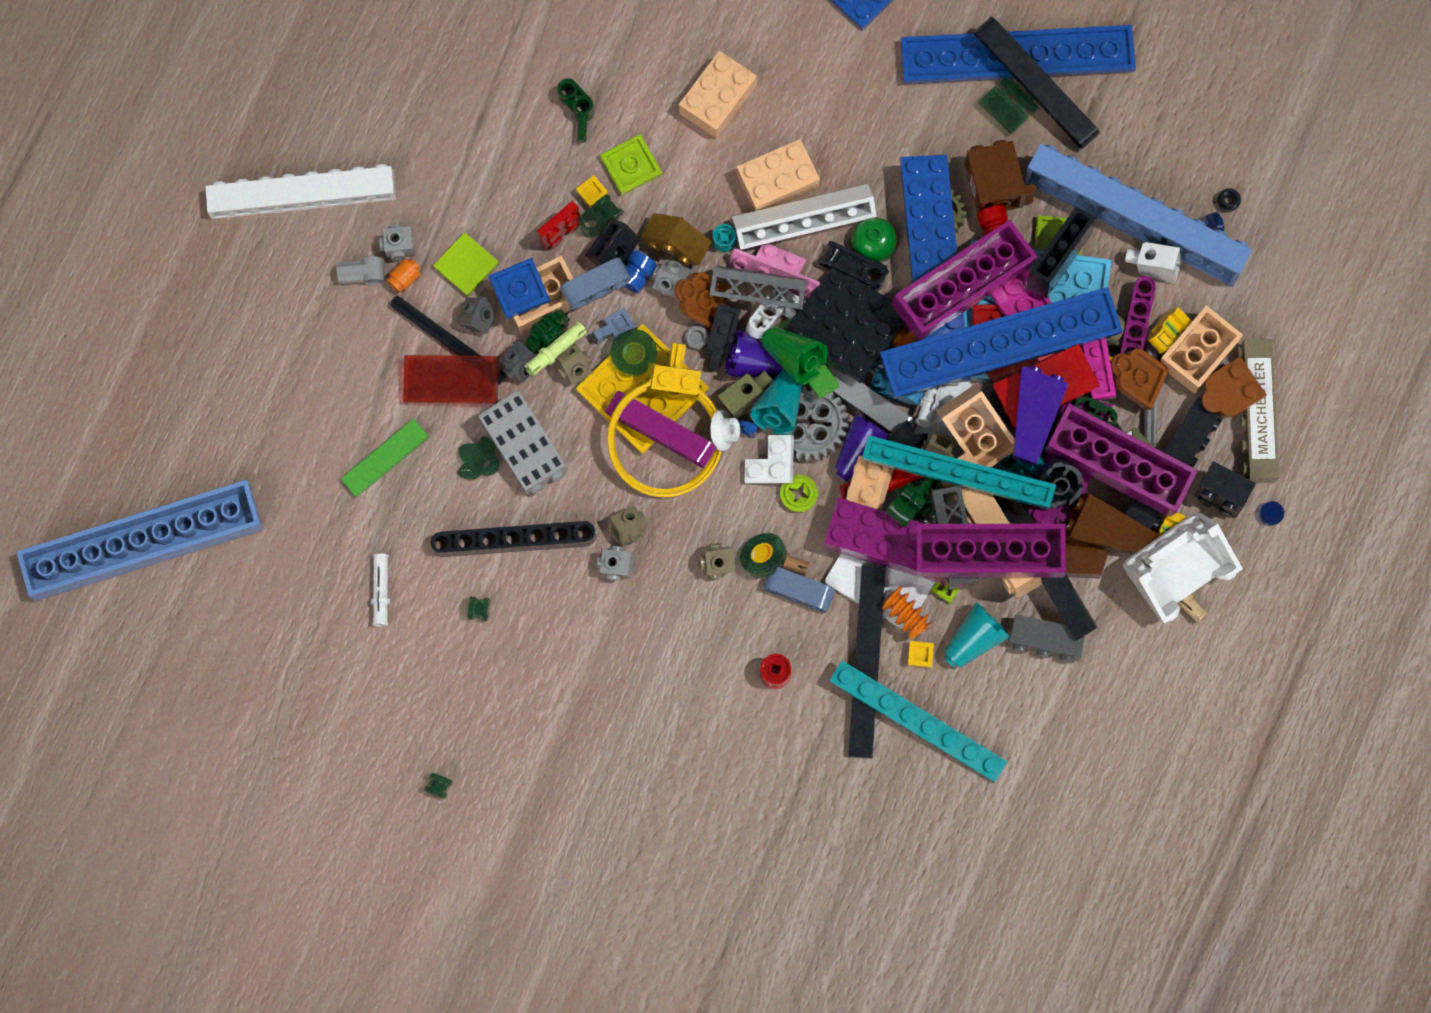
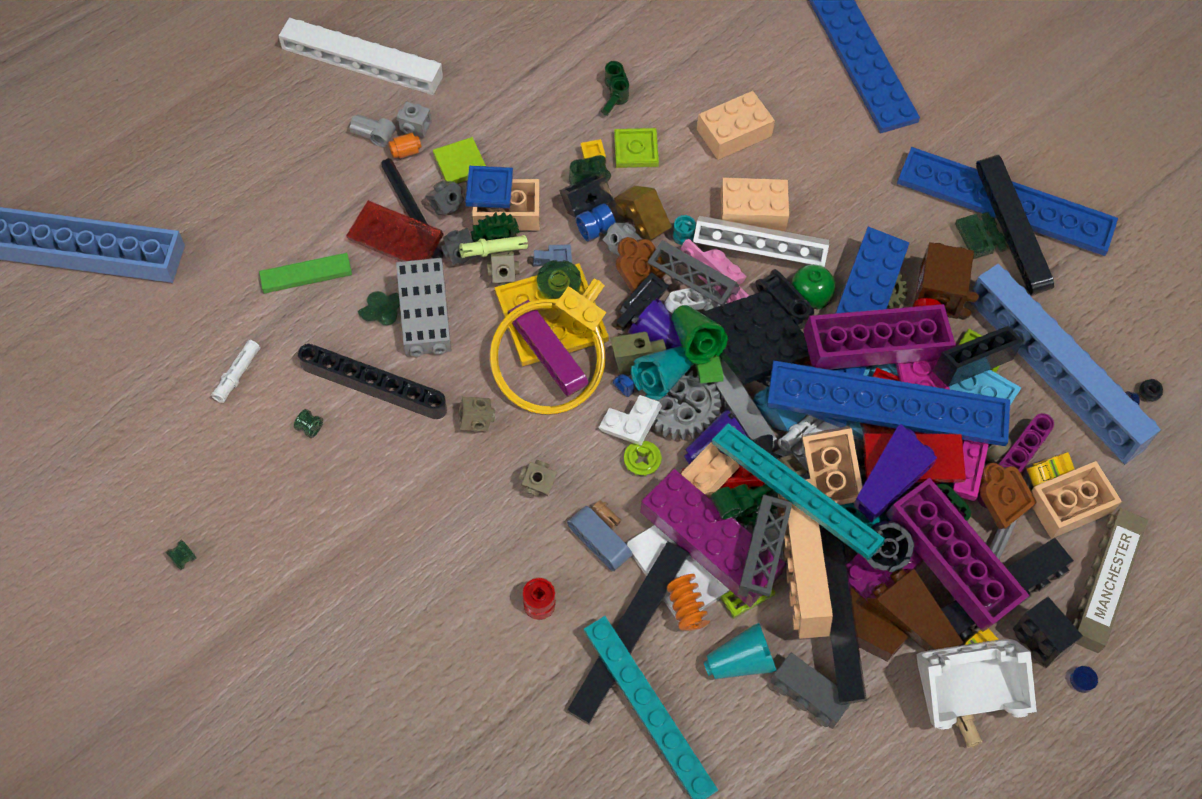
camera: 20 degrees right, 15 degrees down
(559, 225) = (550, 159): red plate -> none
(595, 283) = (554, 208): sand blue beam -> none
(624, 563) = (448, 439): light grey brick -> none
(696, 338) = (618, 296): light grey tile -> none
(724, 429) = (602, 373): white piece -> none
(763, 555) = (582, 492): clear green tile -> none
(920, 654) = (683, 649): yellow plate -> none
(990, 551) = (793, 568): magenta brick -> none
(1156, 261) = (1065, 407): white torso -> none
(1232, 390) = (1091, 545): dark orange plate -> none

